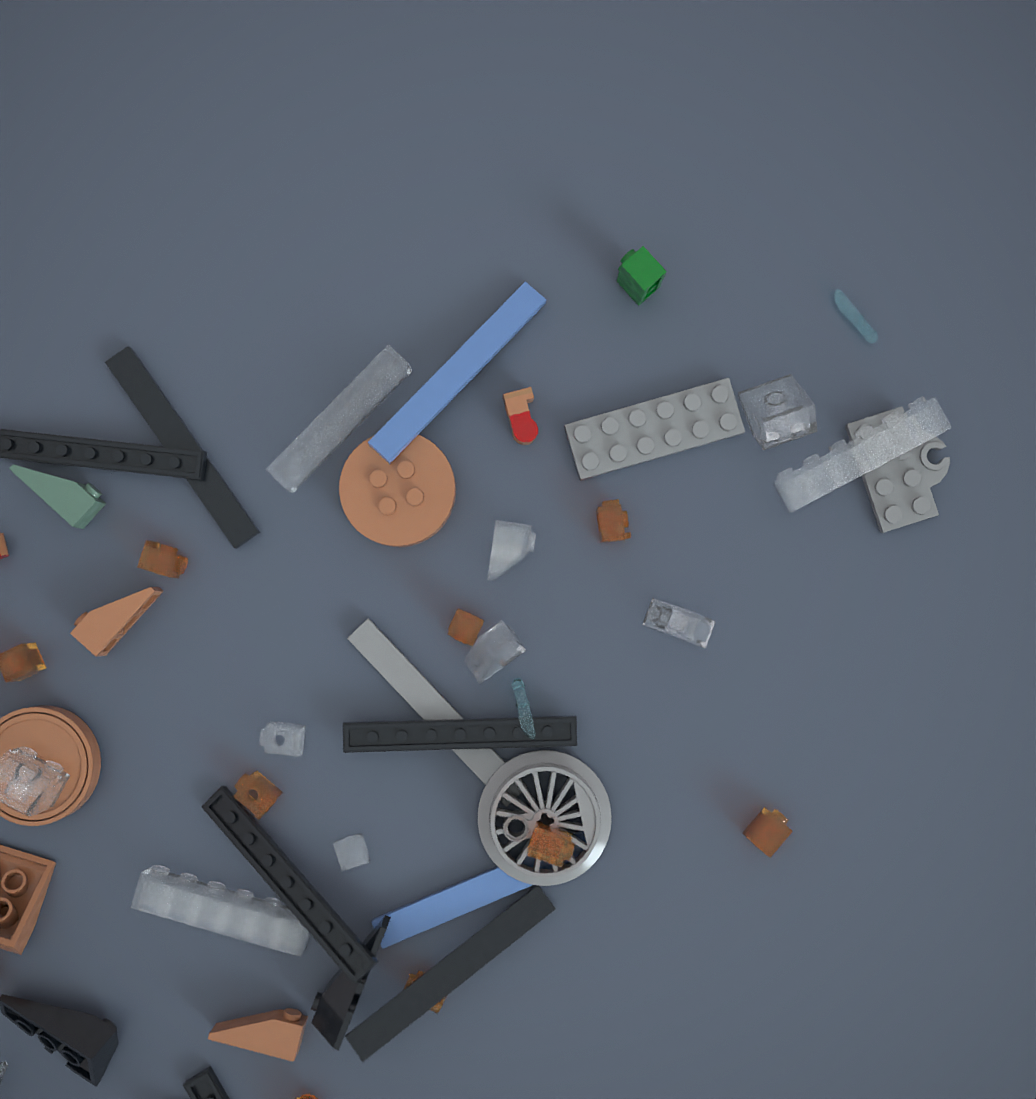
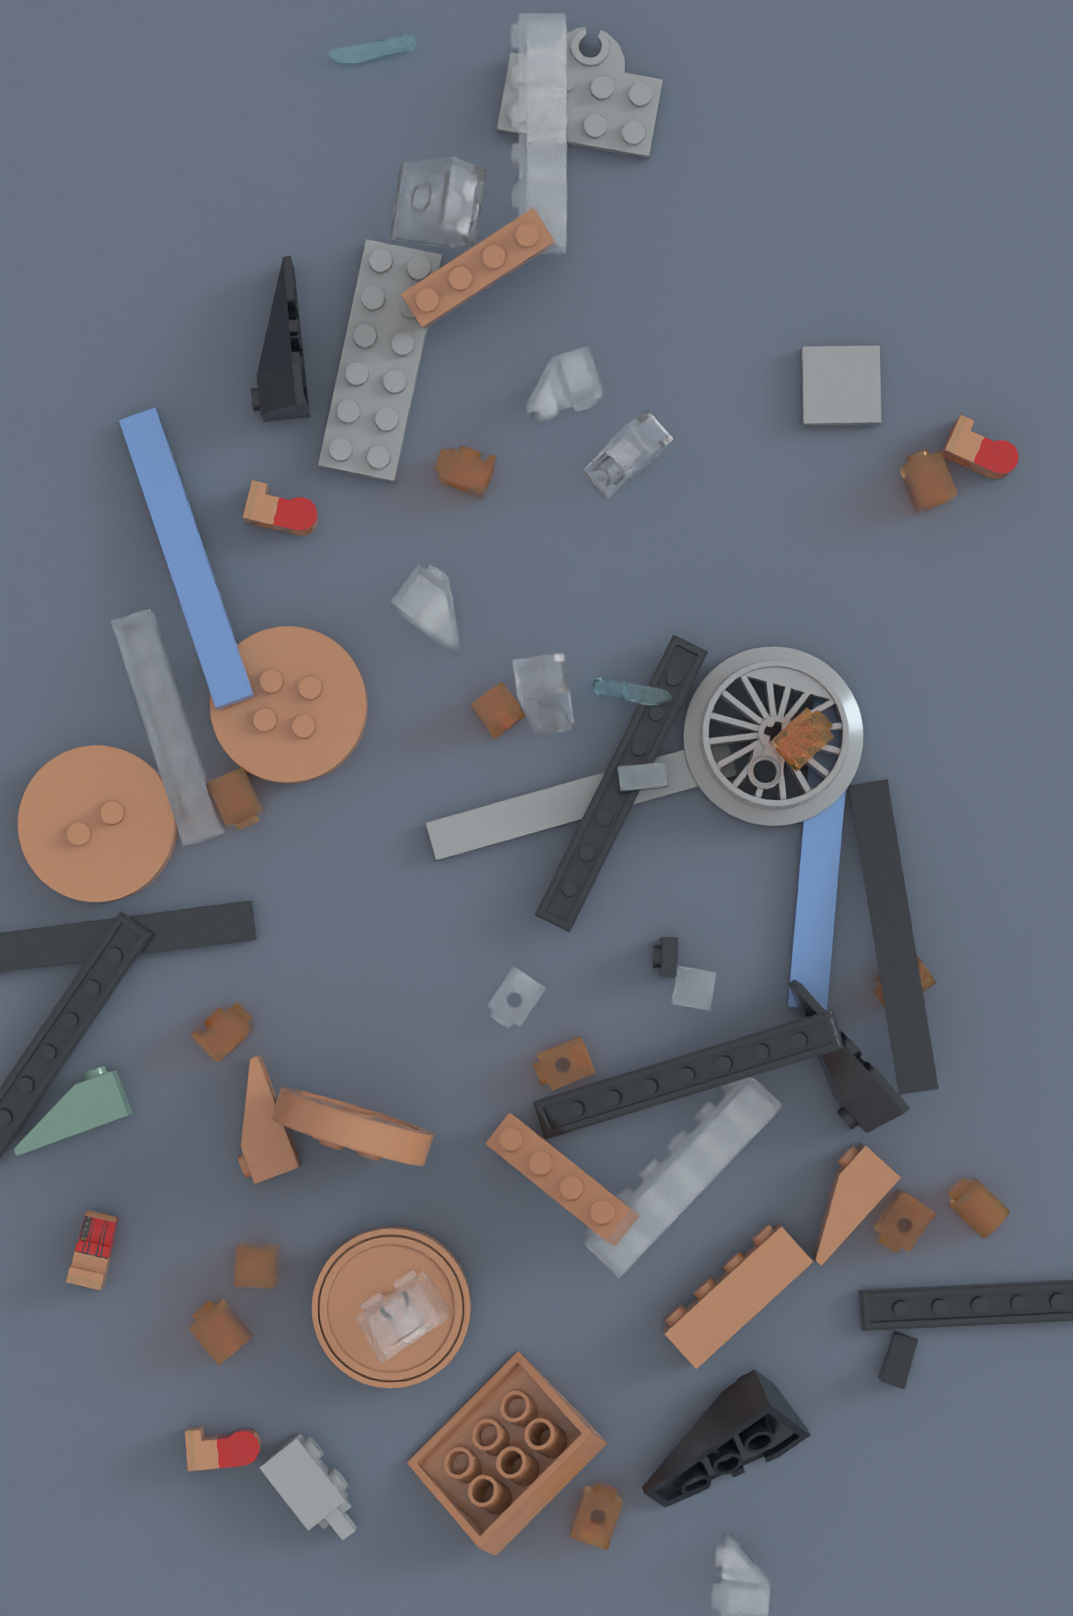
camera: 55 degrees left, 0 degrees up
(132, 680) = (352, 1126): none -> nougat brick
(162, 989) = (736, 1295): none -> nougat brick
(174, 836) = (562, 1179): none -> nougat brick
(254, 405) = (97, 824): none -> nougat brick
(274, 1068) = (900, 1207): none -> clear orange brick
(318, 488) = (236, 799): none -> clear orange brick
(361, 824) = (666, 956): none -> black plate
(470, 746) = (642, 777): none -> piece
(615, 367) = (281, 369): none -> black wedge
(640, 274) = (187, 279): green brick -> none
(705, 557) = (565, 383): none -> clear slope
(749, 460) = (478, 268): none -> nougat brick
(800, 739) = (841, 385): none -> light grey tile
(804, 854) = (977, 452): none -> leg

